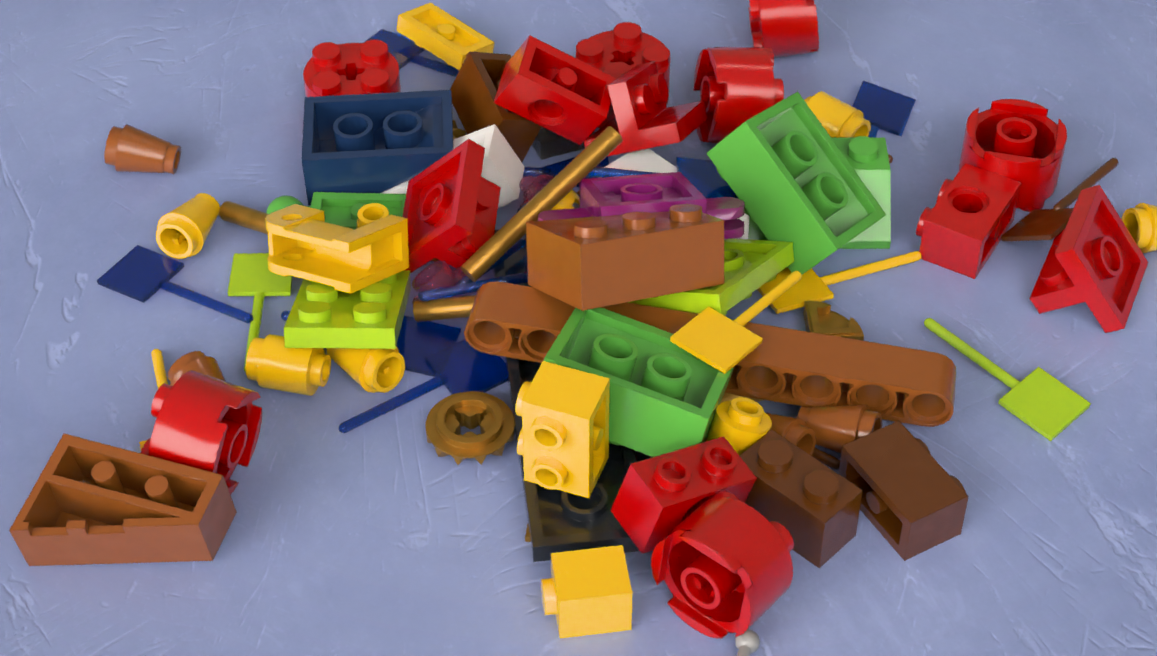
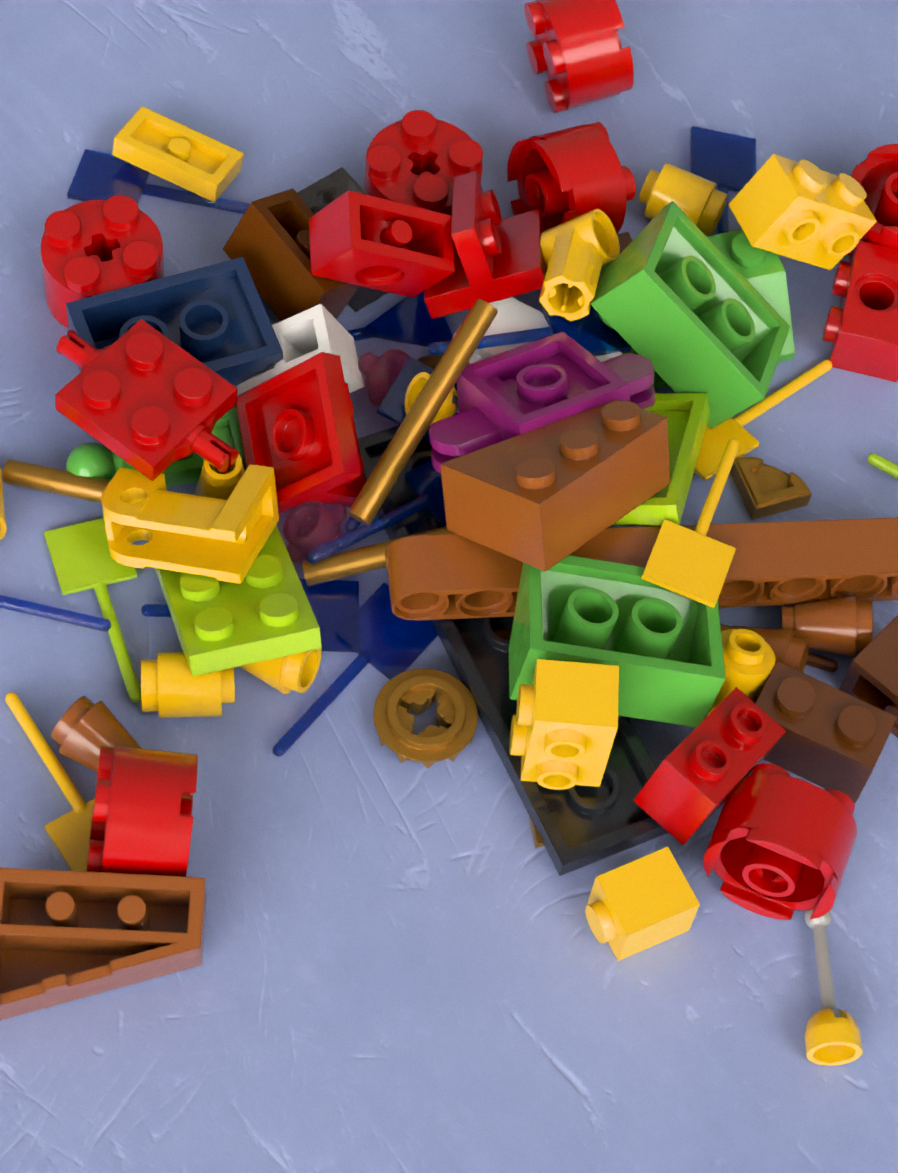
camera: 25 degrees left, 15 degrees up
(331, 160) = (147, 400): none -> red plate
(706, 127) = (574, 262): none -> yellow piece
(916, 127) = (802, 211): none -> yellow brick

